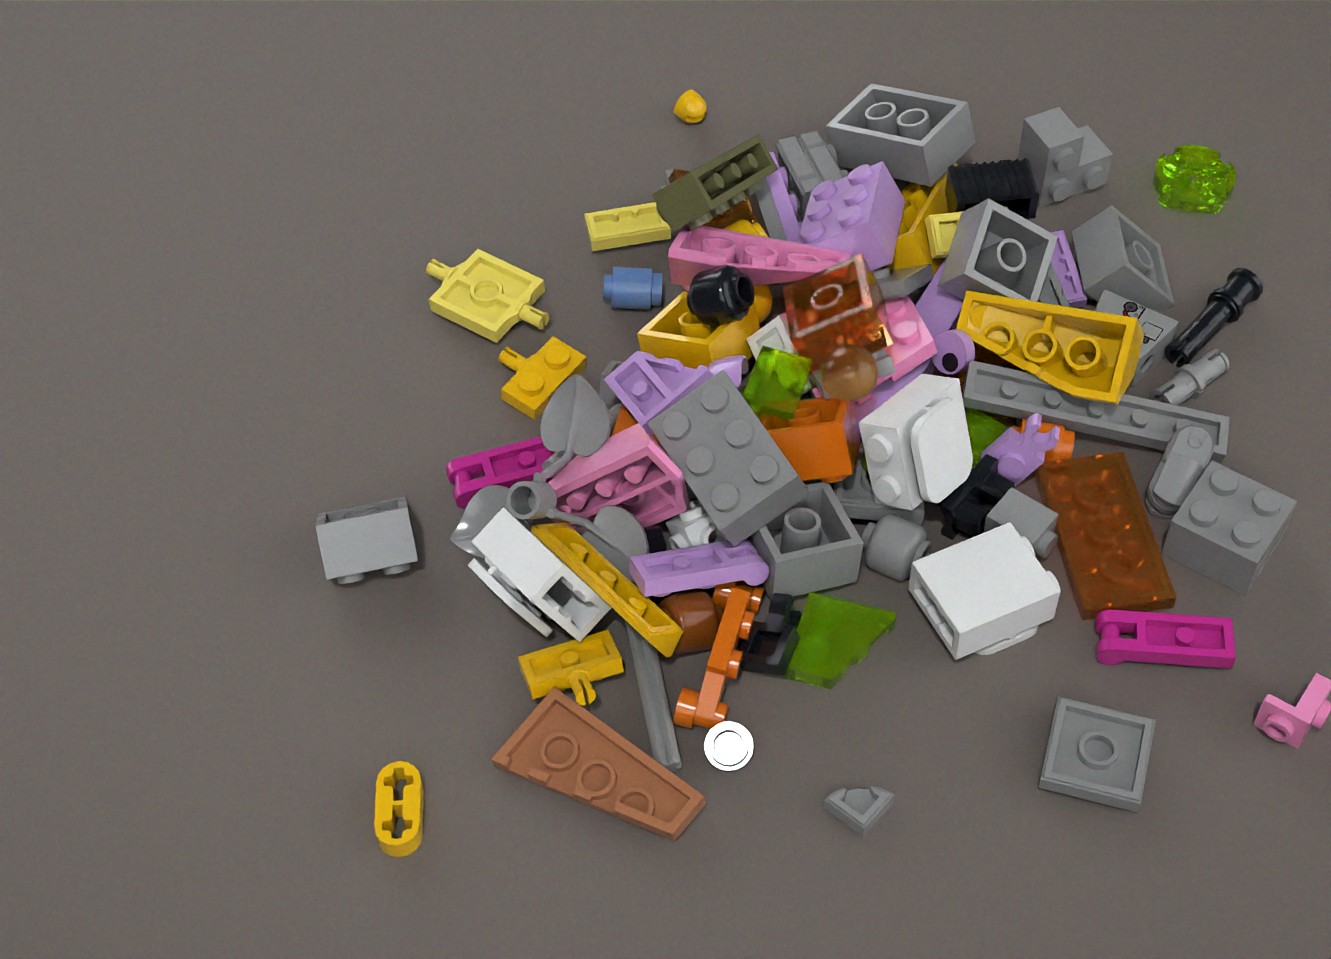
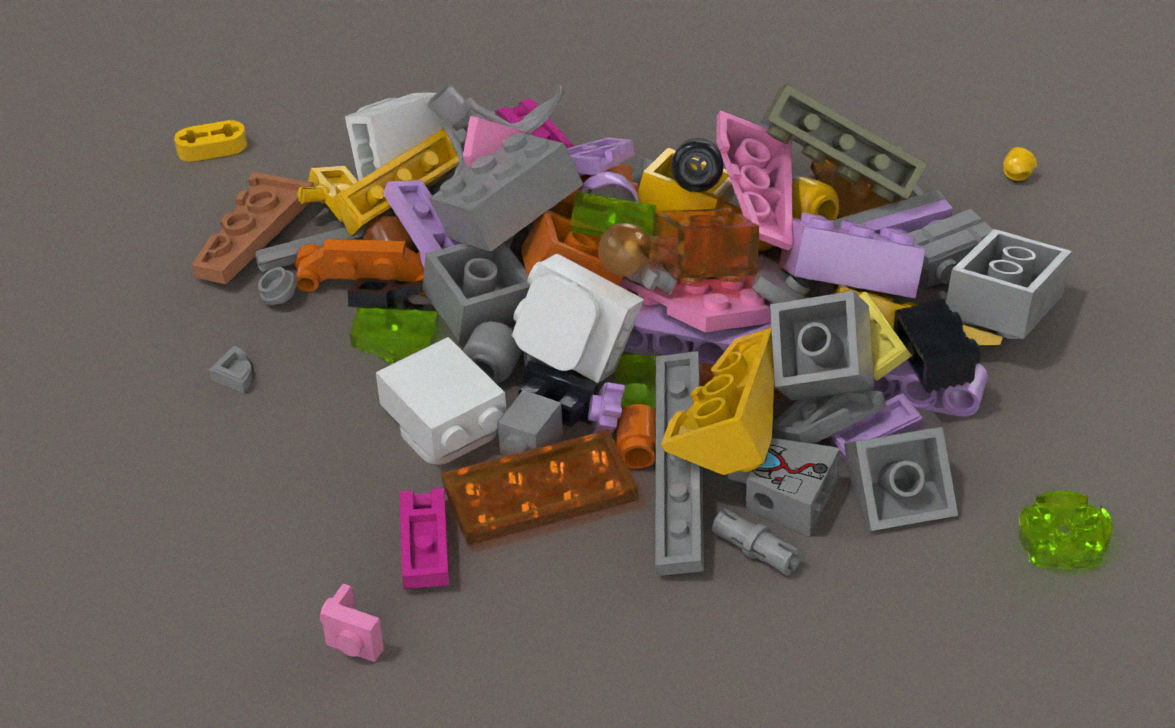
camera: 80 degrees right, 10 degrees down
(366, 540) = (435, 62): light grey slope -> none
(486, 295) = (724, 85): light yellow plate -> none
(539, 375) = (648, 134): yellow plate -> none
(953, 351) = (715, 346): lavender tile -> none
(1063, 156) = (1028, 410): light grey brick -> none
(1097, 754) = (294, 499): light grey plate -> none
(1179, 470) = (617, 524): light grey arm -> none
(1223, 307) = (868, 558): black pin -> none
(1228, 527) = (557, 566): light grey brick -> none

